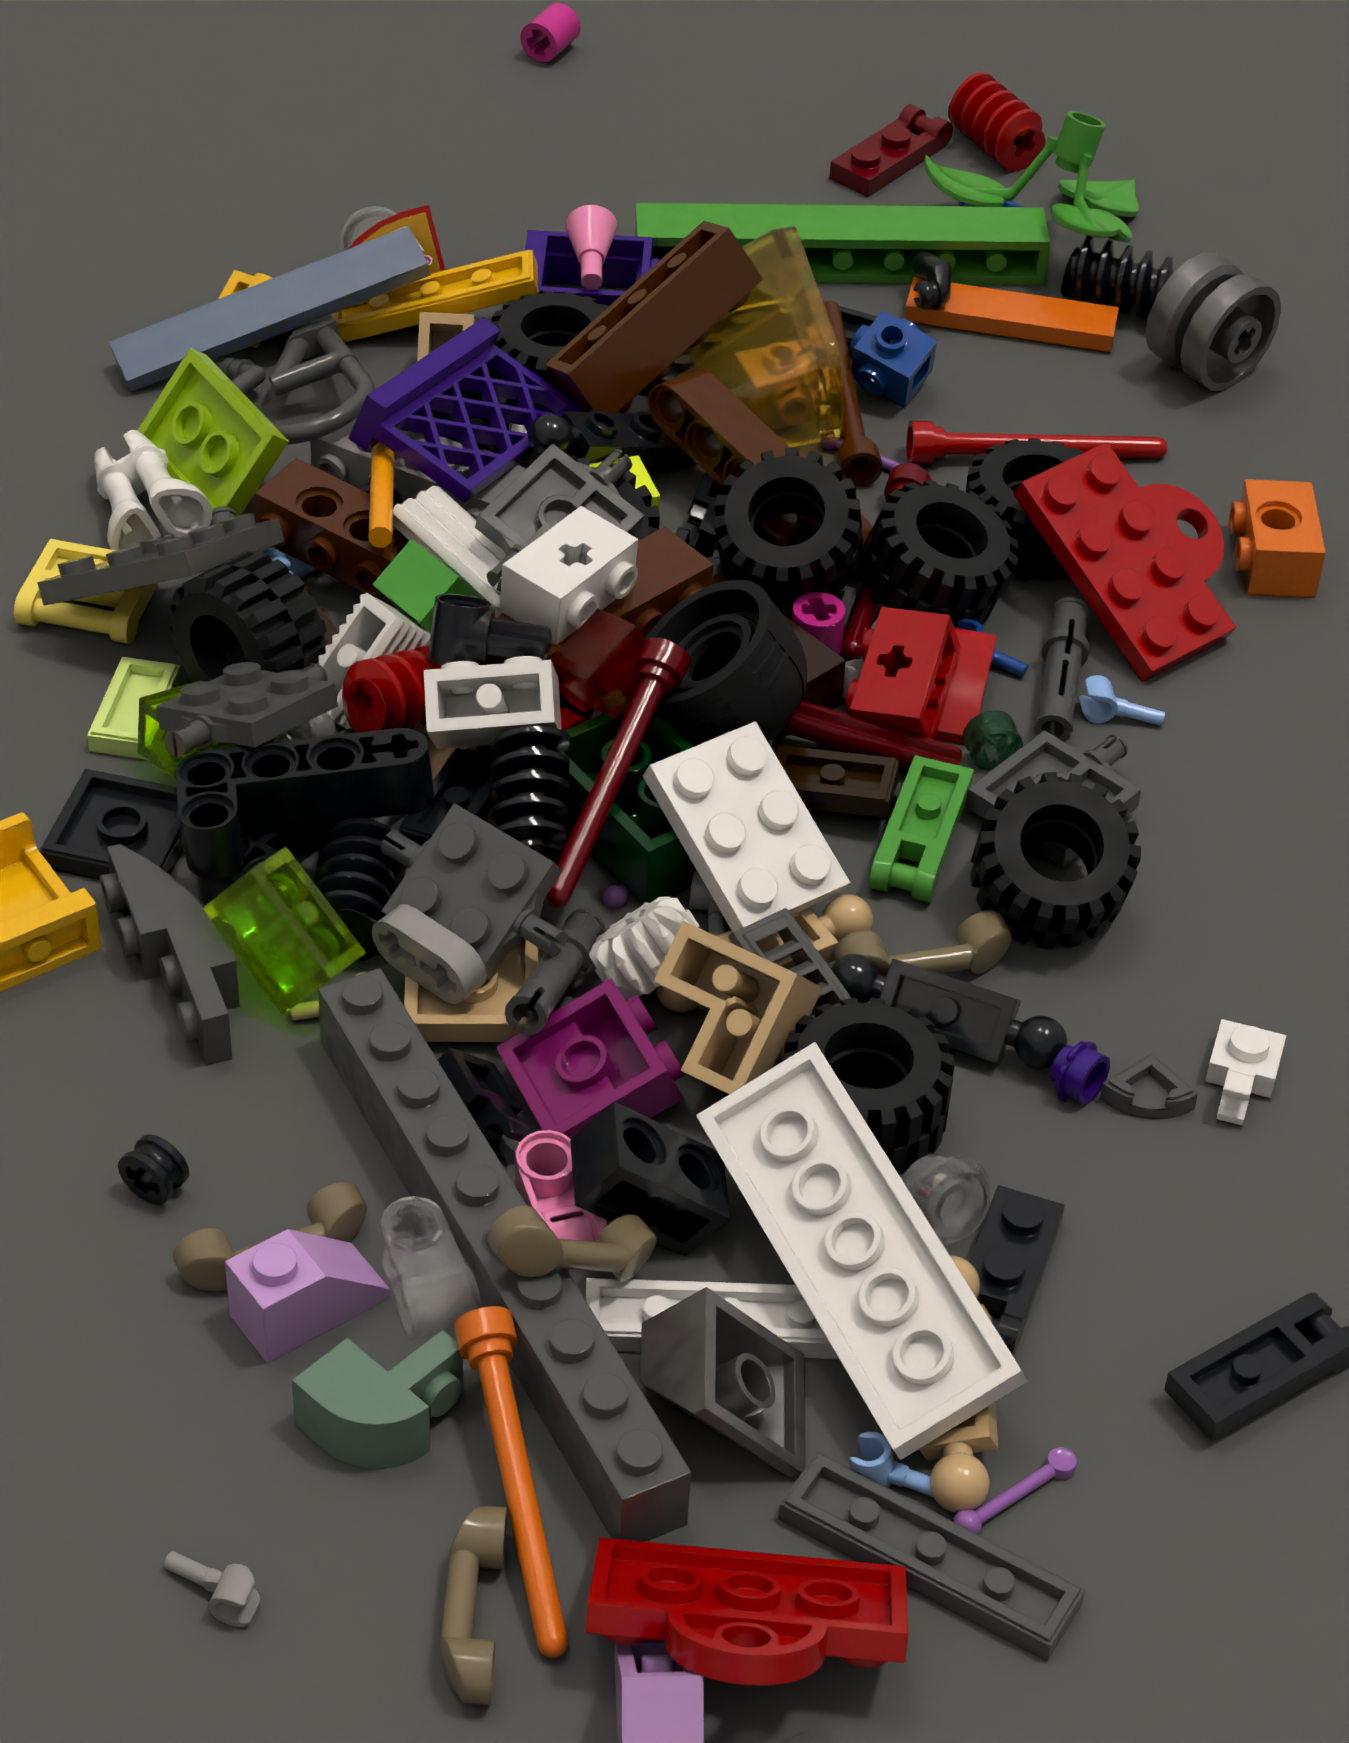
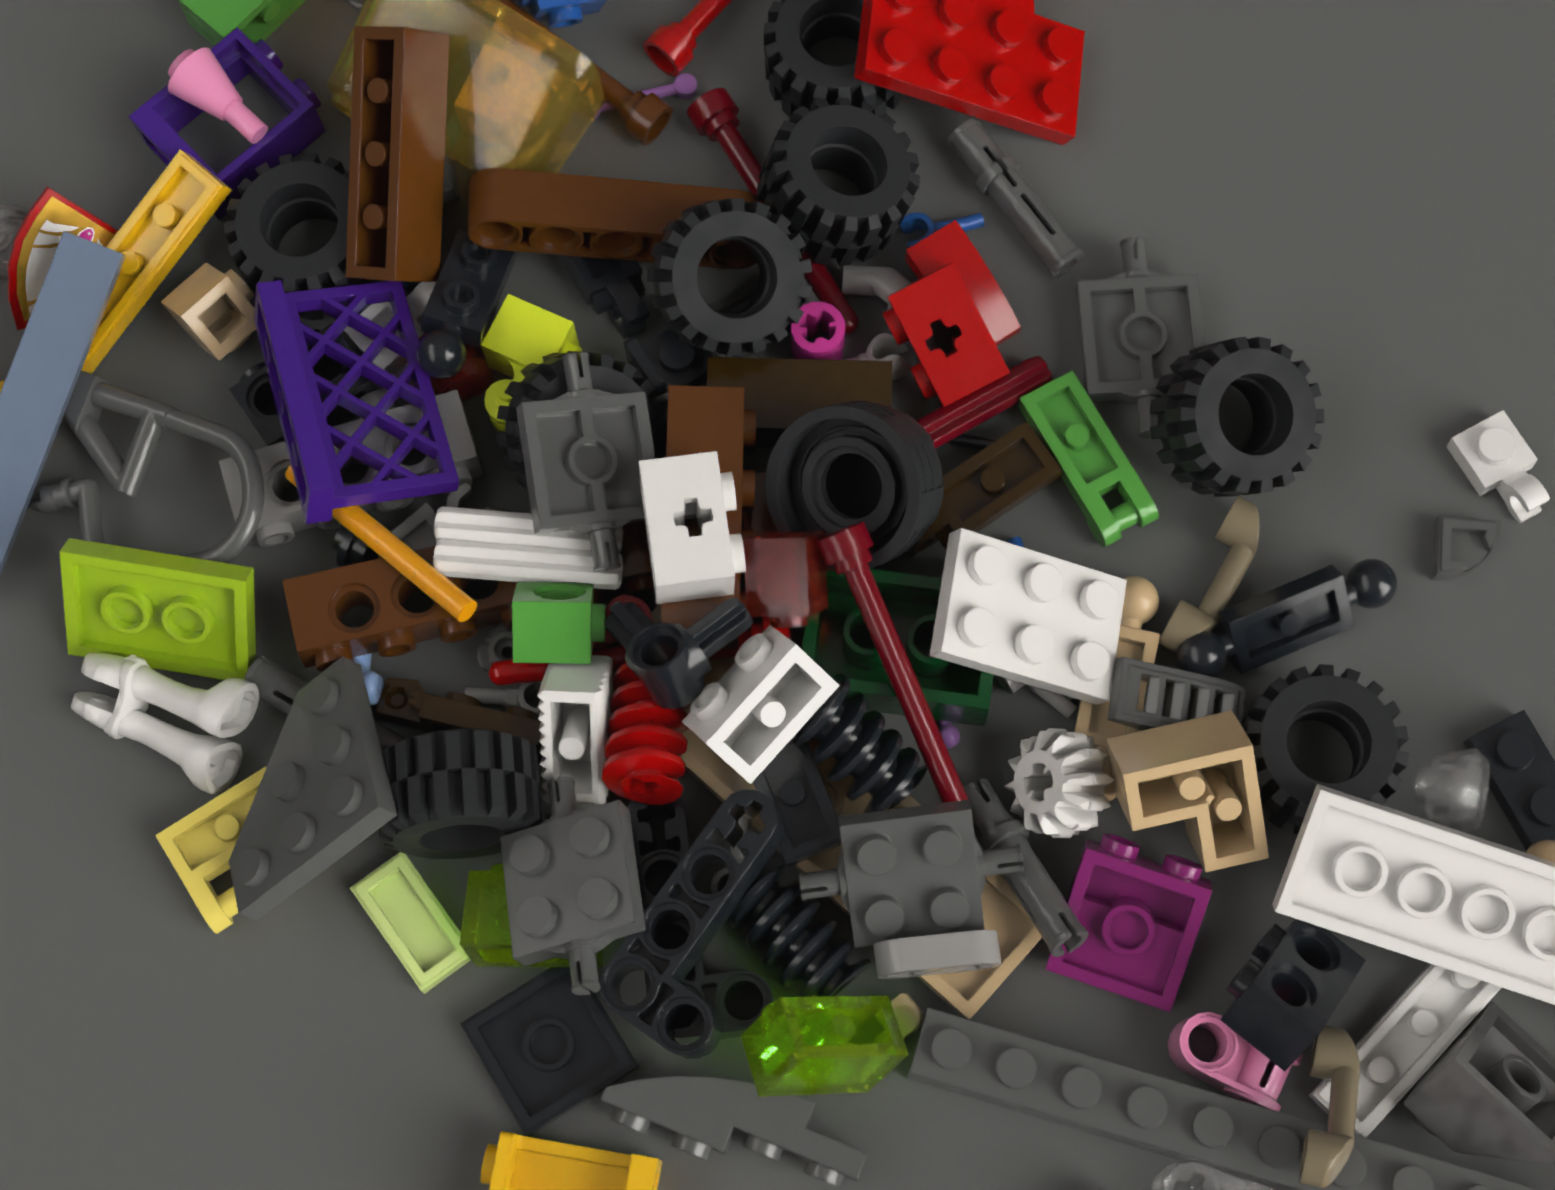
camera: 40 degrees left, 30 degrees up
(485, 1097) = (1087, 1025): black plate -> none
(985, 728) = (1047, 323): clear green bush -> none
(1079, 1072) = (1416, 581): dark purple plate -> none
(1103, 704) = (1068, 203): light blue hand -> none

